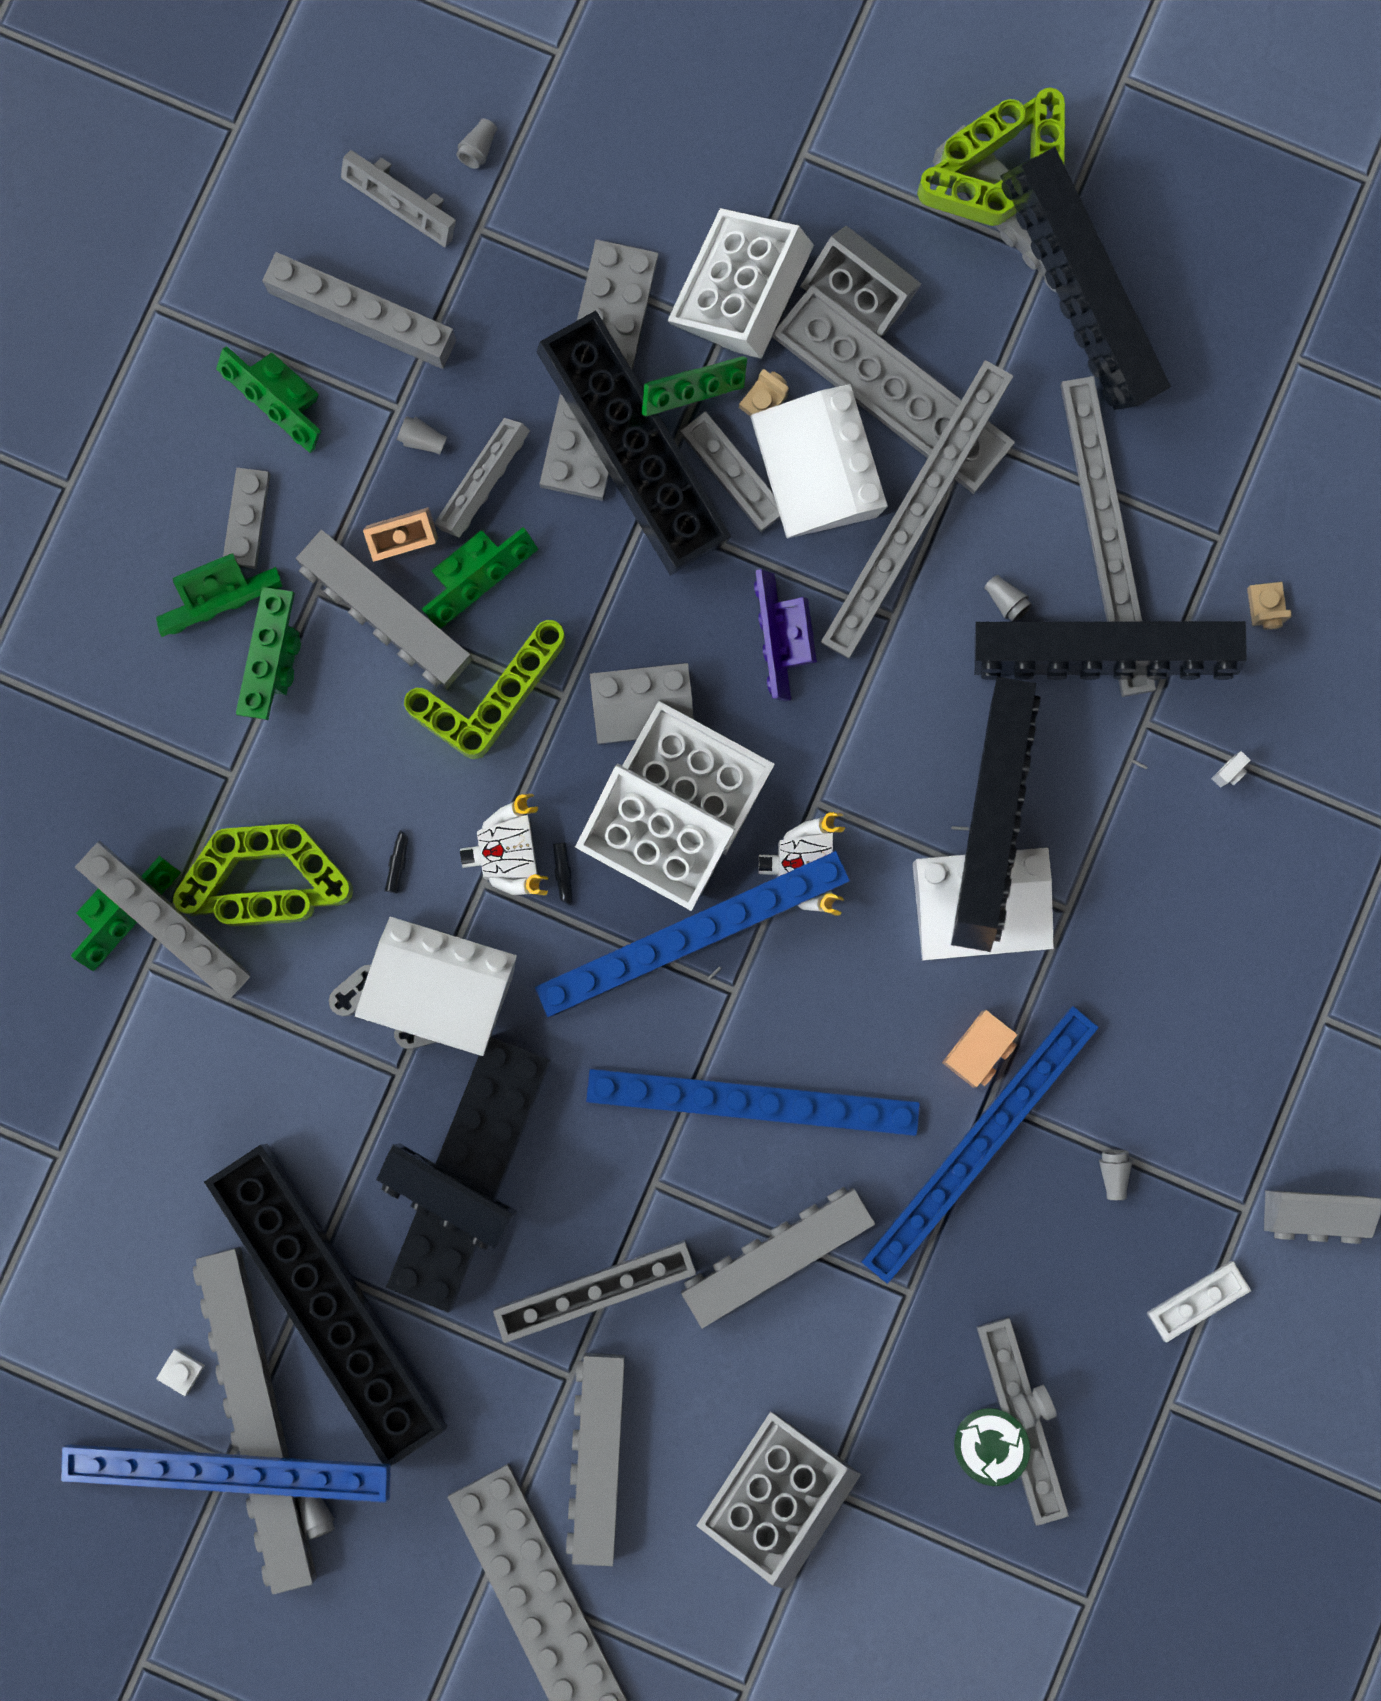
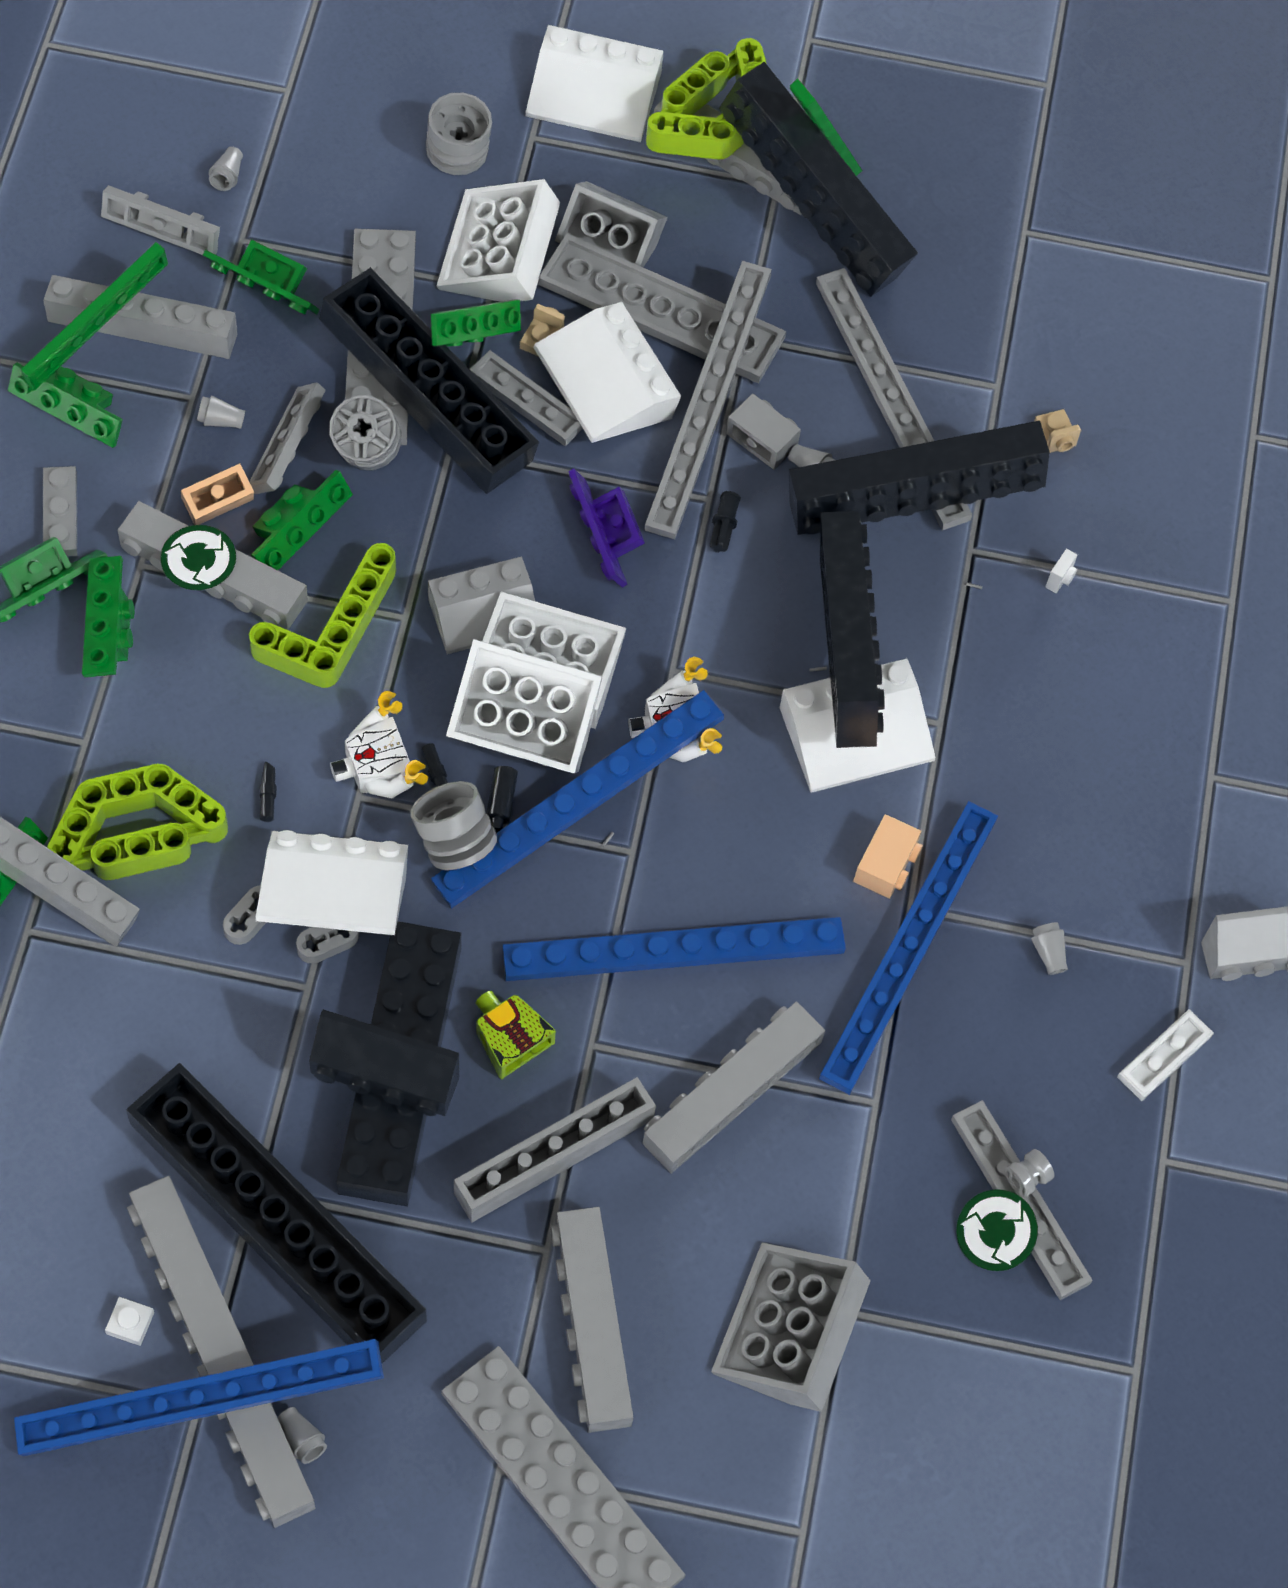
camera: 15 degrees left, 20 degrees down
(308, 316) = (94, 316): none -> green tile
(369, 604) = (198, 557): none -> sticker
(498, 278) = (270, 270): none -> green bracket
(563, 947) = (454, 825): none -> light grey wheel
(571, 480) = (382, 438): none -> light grey wheel
(578, 1161) = (511, 1032): none -> lime torso
(618, 914) = (501, 796): none -> black cylinder
(726, 129) = (458, 133): none -> light grey wheel
(880, 103) = (594, 83): none -> white slope
(902, 649) = (724, 521): none -> black axle
(965, 553) = (763, 431): none -> light grey brick
(1105, 226) = (820, 119): none -> green tile

